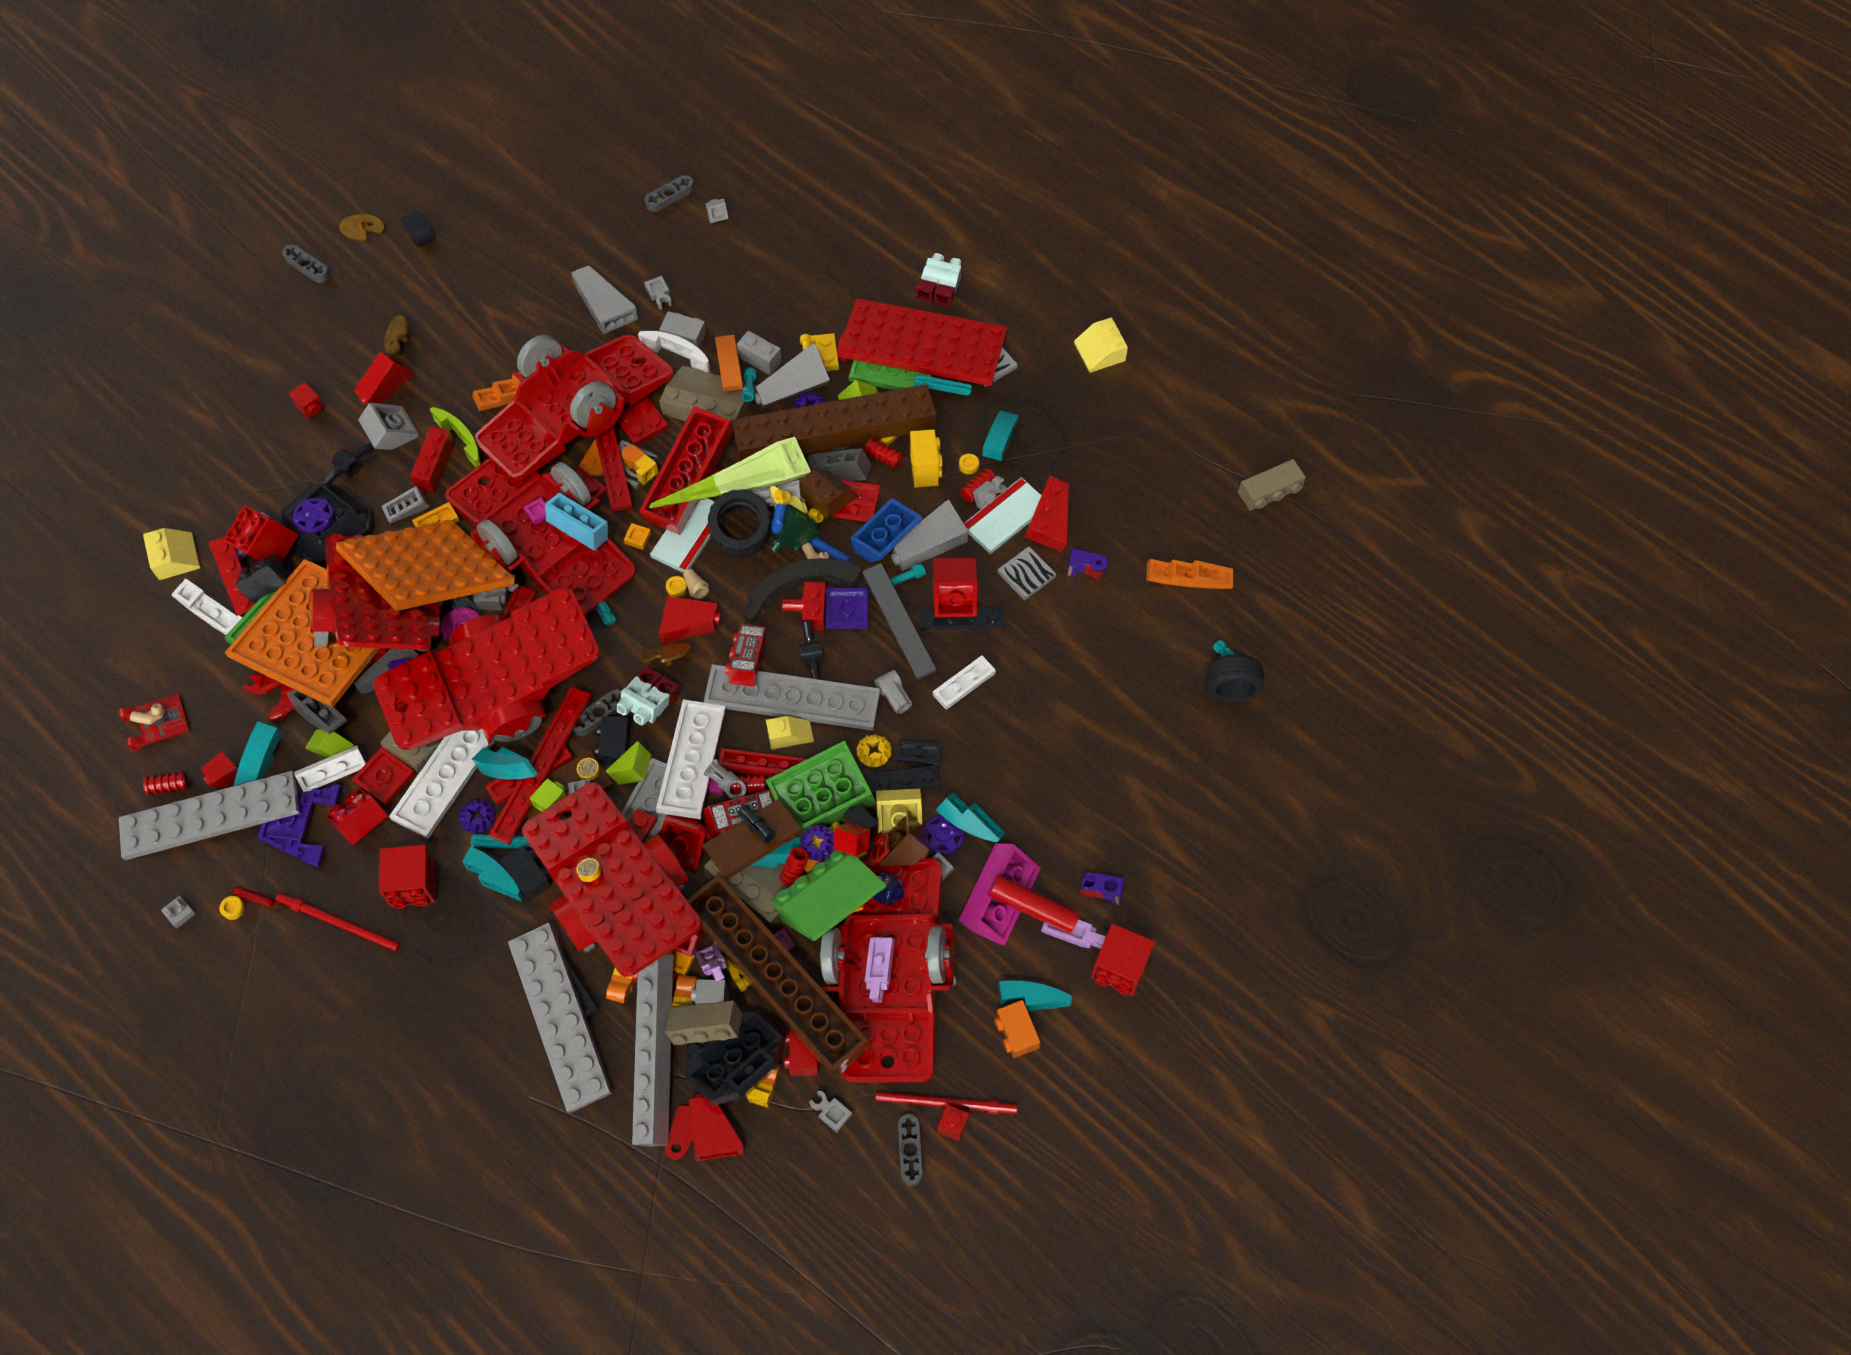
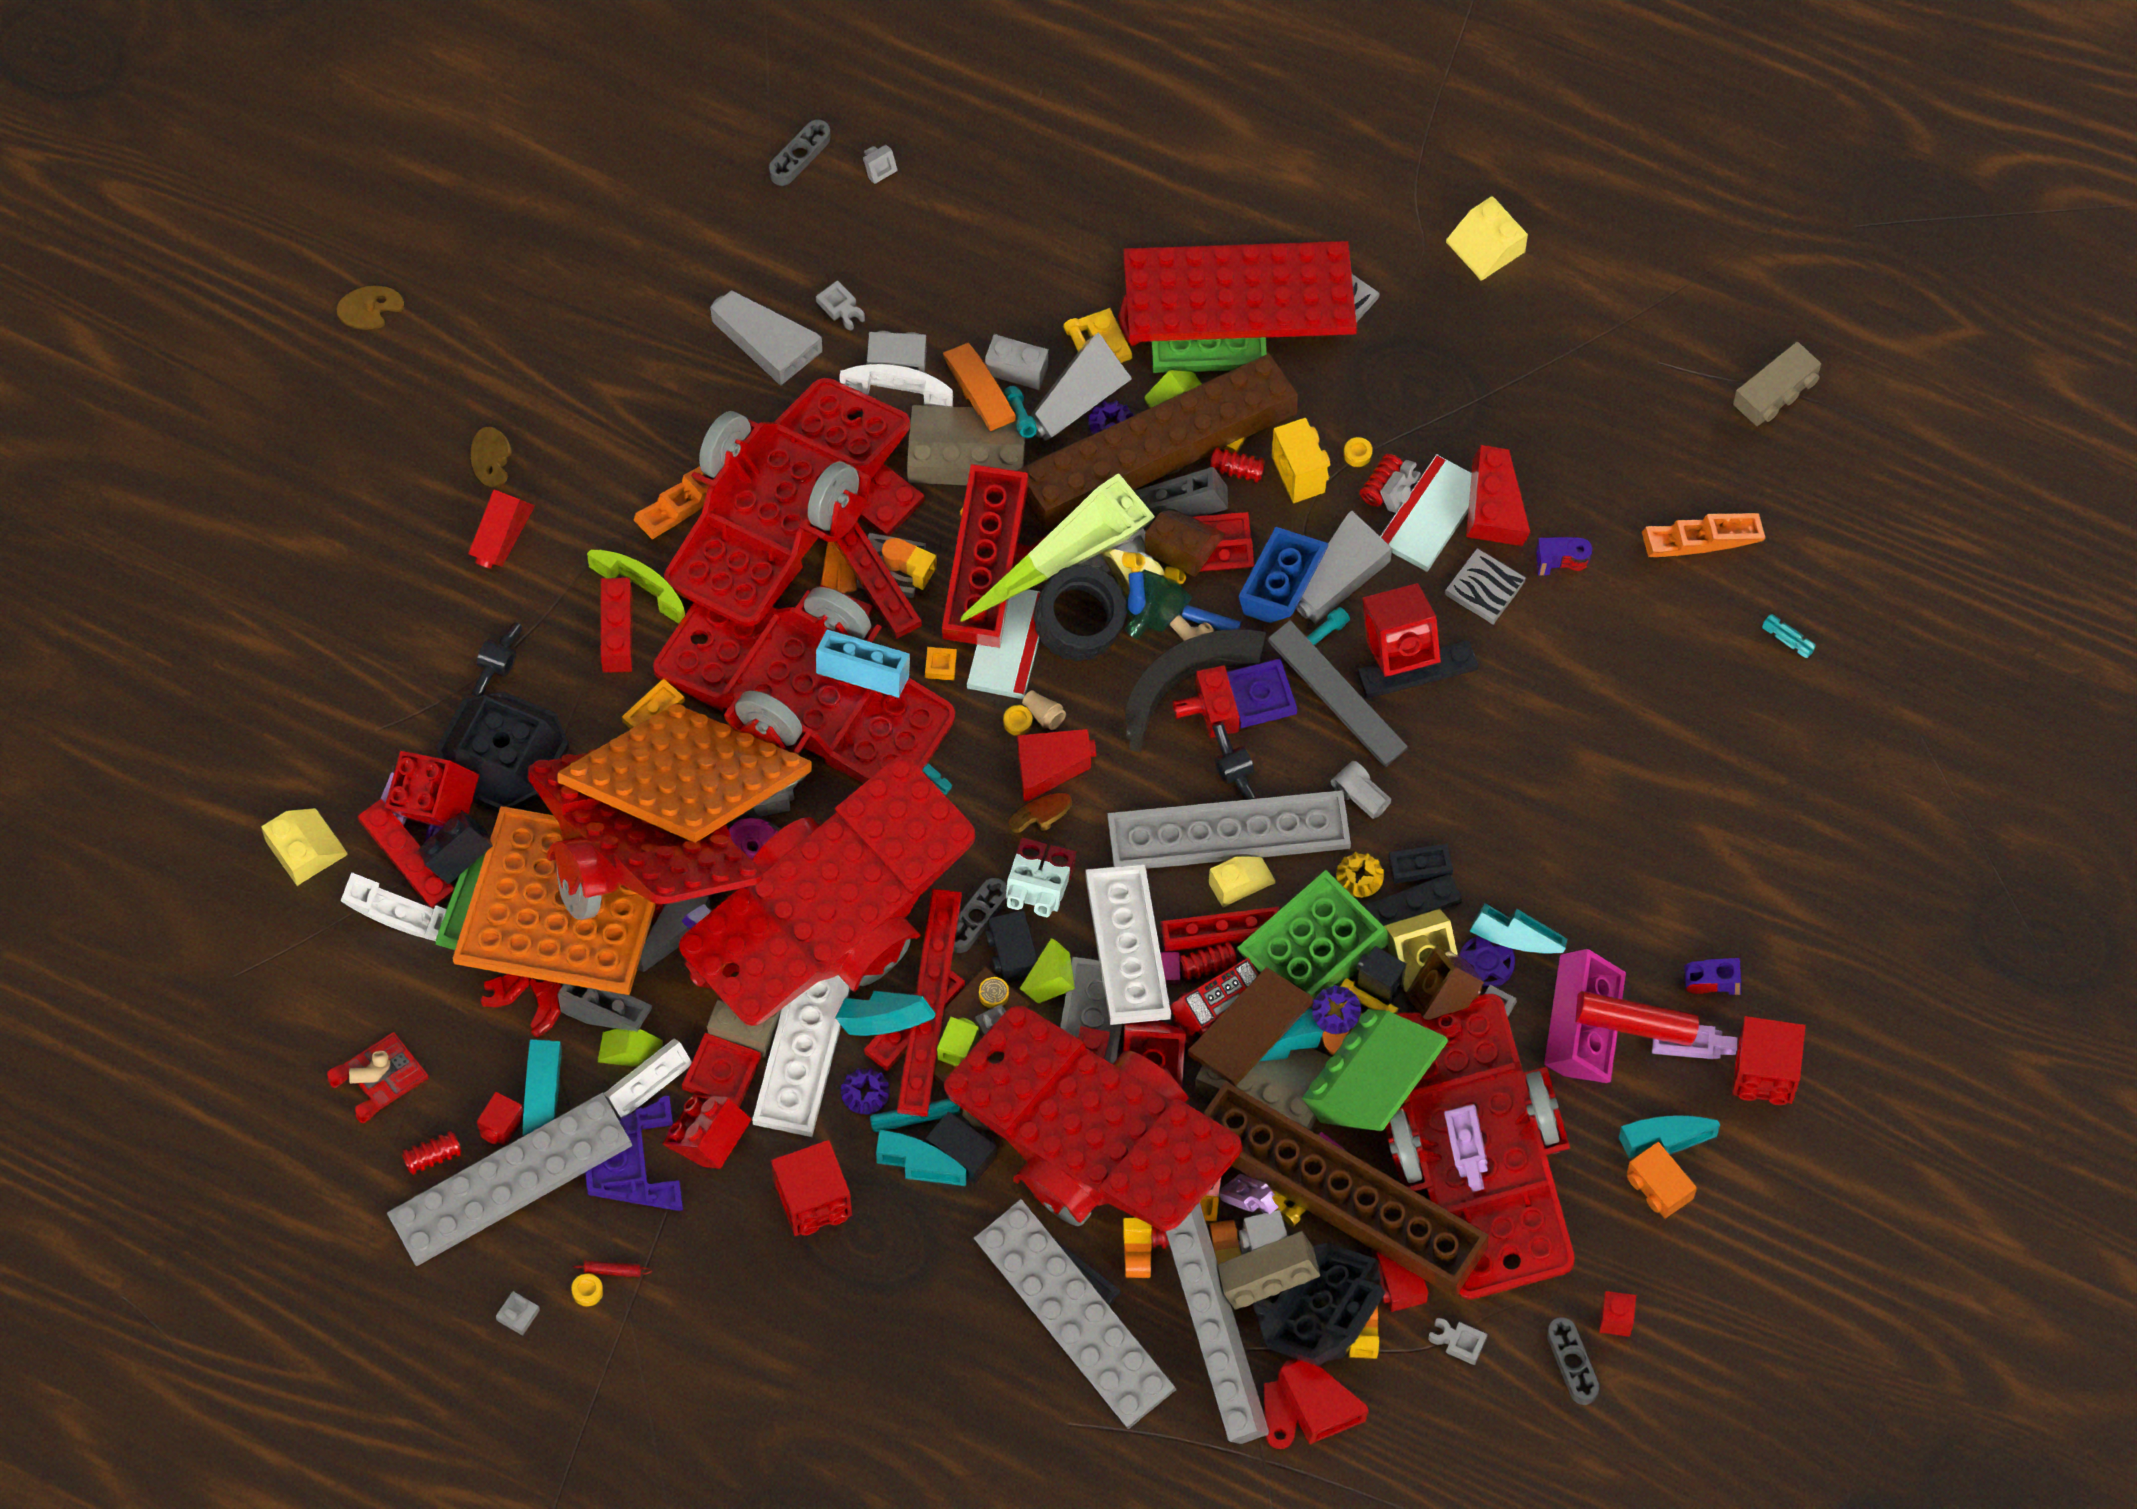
camera: 15 degrees left, 0 degrees up
(288, 254) = (320, 391): dark grey beam -> none
(299, 905) = (676, 1264): red bar -> none
(306, 400) = (402, 583): red brick -> none
(313, 513) = (494, 742): dark purple wheel -> none
(387, 426) = (532, 592): light grey slope -> none
(415, 507) = (613, 701): light grey slope -> none
(417, 228) = (456, 291): black axle -> none
(519, 598) = (814, 796): red tile -> none
(536, 511) = (797, 662): dark pink tile -> none
(588, 870) = (1061, 1115): tile -> none
(725, 780) = (1184, 960): light grey connector -> none
(746, 655) = (1151, 789): brick -> none
(756, 824) = (1252, 1005): black pin -> none
(794, 866) = (1315, 1049): red piece -> none
(851, 839) = (1381, 993): red brick -> none
(880, 849) = (1415, 998): red piece -> none
(892, 892) = (1453, 1050): clear blue head -> none
(939, 280) = (1235, 185): hips -> none
(943, 385) = (1288, 348): teal axle -> none
(964, 682) = (1450, 755): white plate -> none
(992, 1106) = (1658, 1284): red bar -> none
(1000, 435) = (1389, 401): teal slope -> none
(1235, 678) = (1806, 661): black tyre -> none

